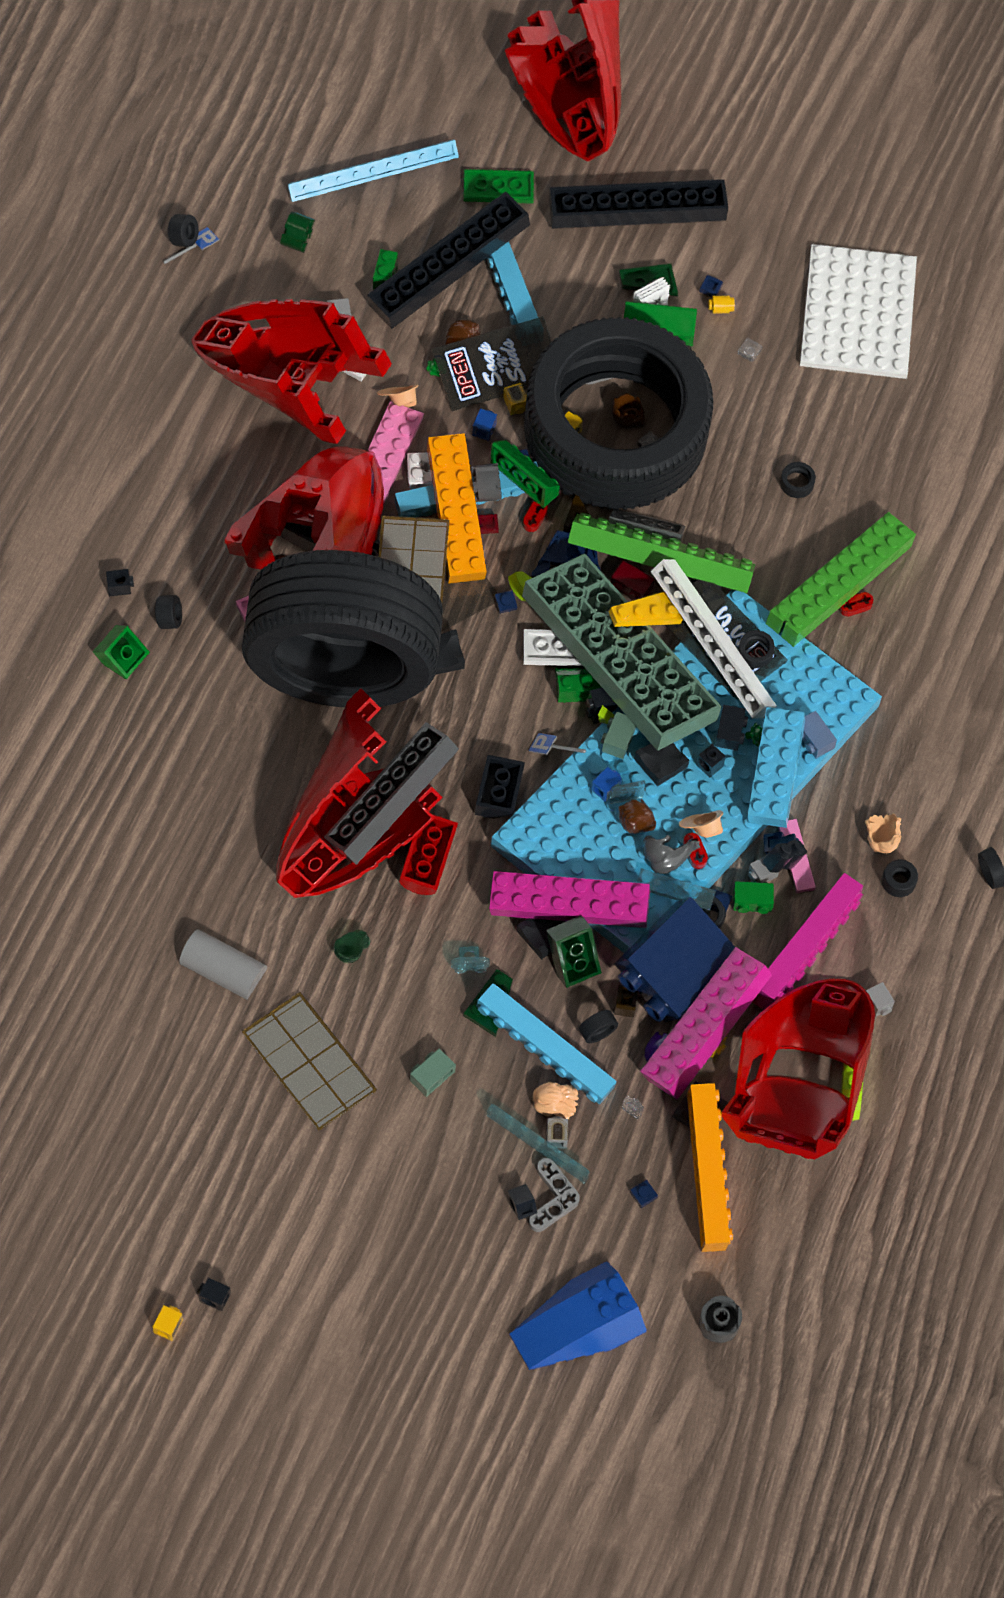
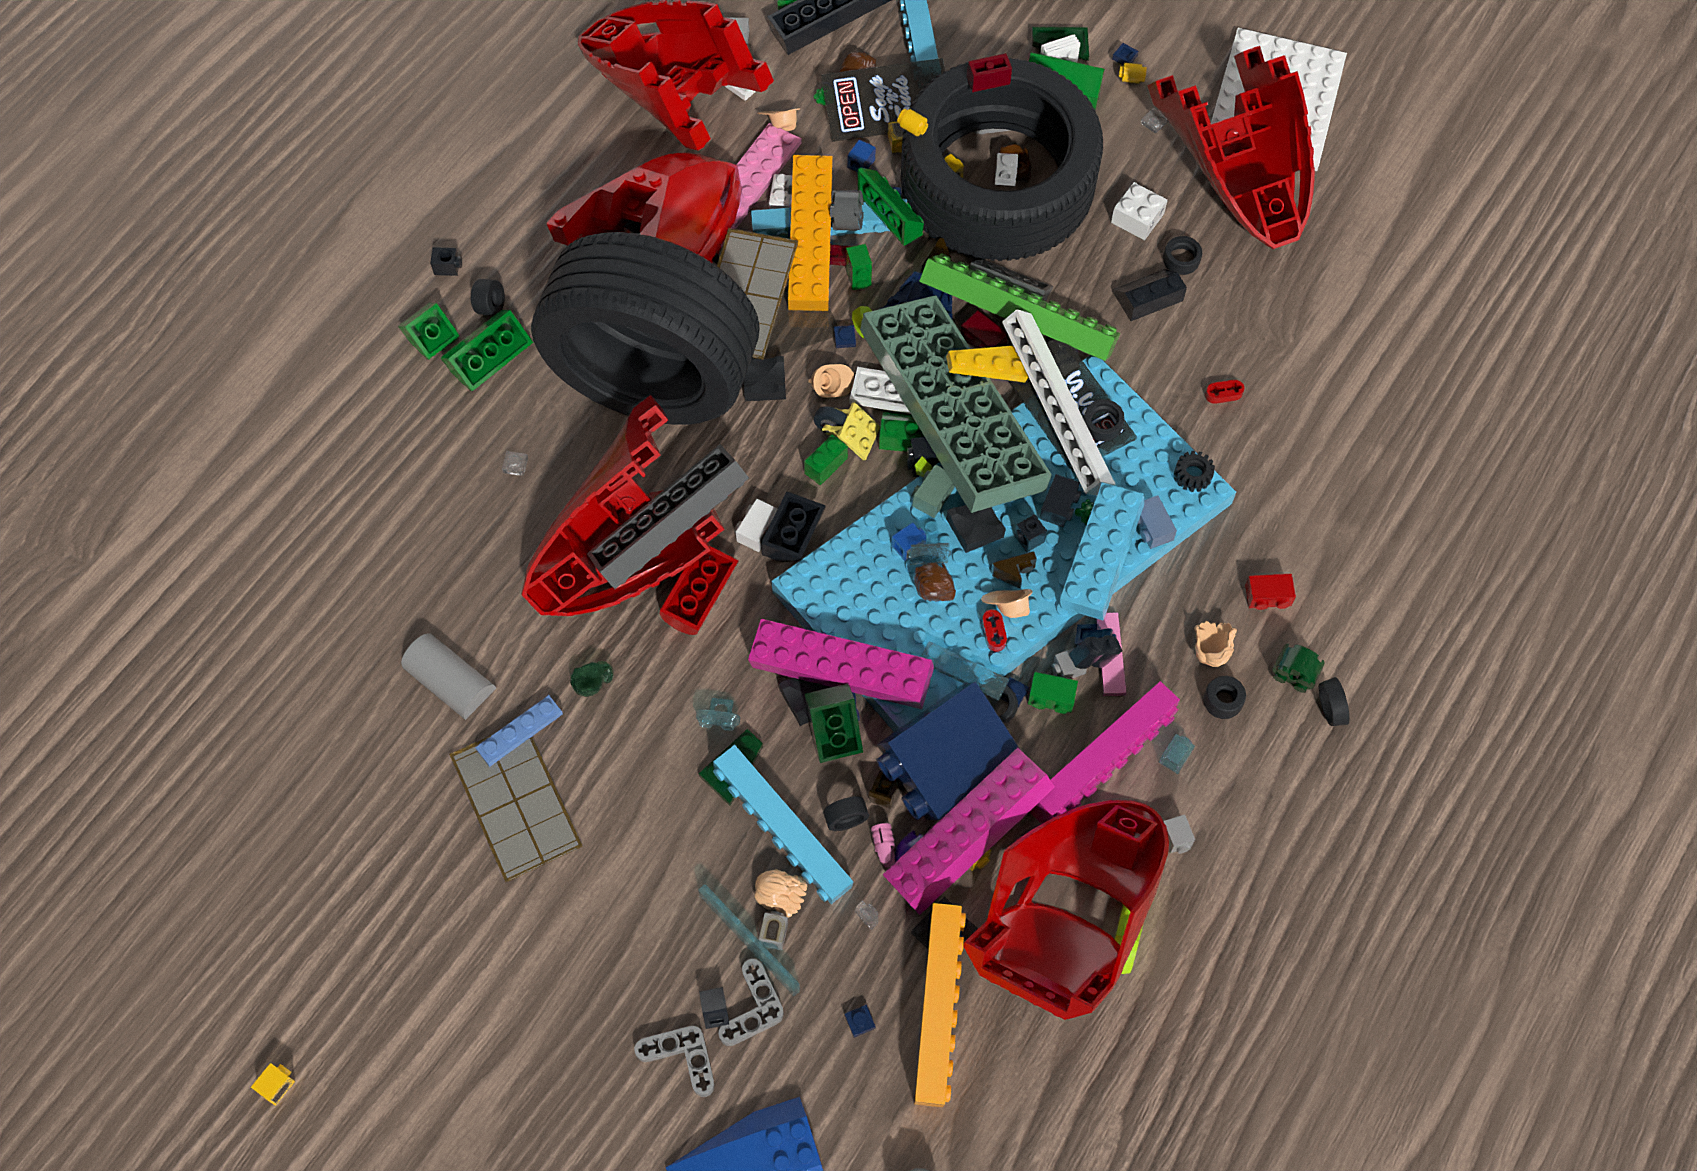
camera: 15 degrees right, 0 degrees up
(180, 661) = (487, 349): none -> green slope
(214, 1294) = (335, 1058): black brick -> none
(232, 764) = (514, 463): none -> clear plate
(298, 1001) = (519, 730): none -> medium blue plate
(432, 1072) = (647, 835): sand green brick -> none
(465, 788) = (755, 524): none -> white brick
(504, 645) = (832, 380): none -> light nougat piece
(506, 534) = (859, 267): none -> green brick
(507, 1239) = (689, 1049): none -> light grey beam
(514, 720) = (826, 460): none -> green brick
(530, 685) = (850, 425): none -> light yellow plate
(538, 395) = (912, 122): none -> yellow brick
(539, 517) = (898, 256): red beam -> none
(544, 742) = (854, 488): piece -> none
(599, 338) = (989, 72): none -> dark red brick
(631, 430) = (1006, 169): none -> light grey brick
(637, 1050) = (884, 843): none -> bright pink hinge
(664, 858) = (959, 634): dark grey piece -> none
(699, 795) = (1009, 569): none -> dark brown slope
(751, 442) = (1139, 211): none -> white piece
(774, 520) = (1150, 293): none -> black slope
(838, 692) = (1194, 481): none -> black tyre
(840, 579) = (1210, 361): bright green piece -> none
(846, 374) = (1256, 151): none -> red piece
(867, 932) = (1177, 753): none -> clear light blue brick
(924, 780) = (1270, 591): none -> red brick
(957, 843) = (1298, 667): none -> dark green brick

